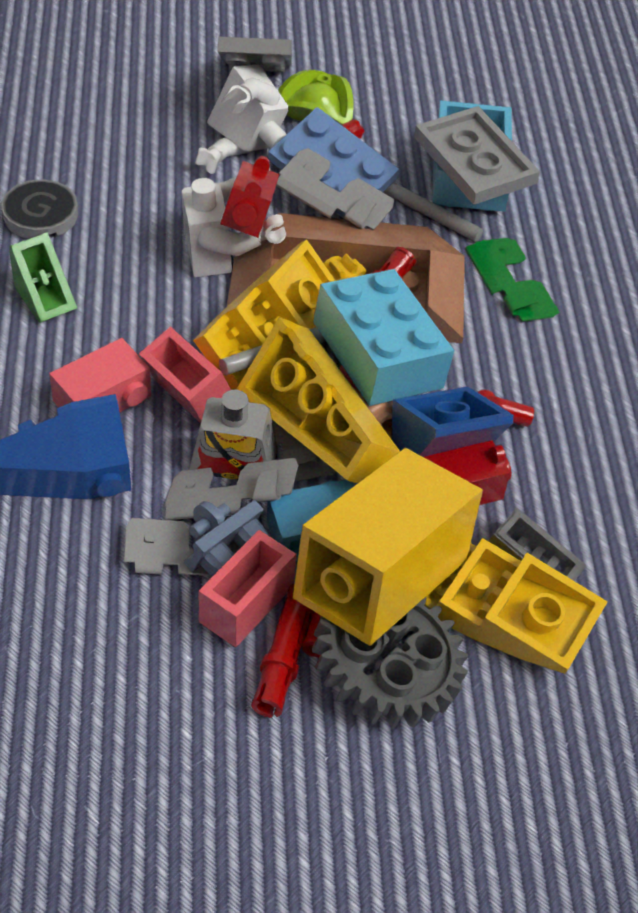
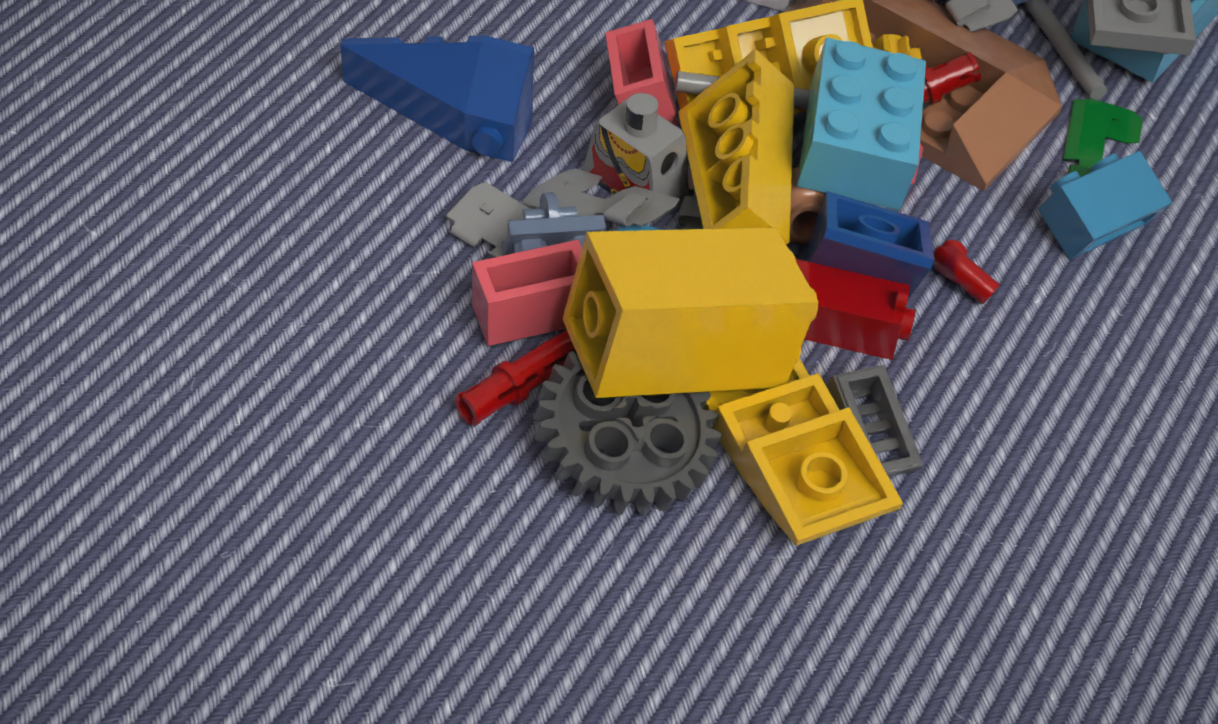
camera: 35 degrees right, 0 degrees up
(103, 373) = (566, 45): coral brick -> none
(553, 316) = (1104, 203): none -> dark azure brick

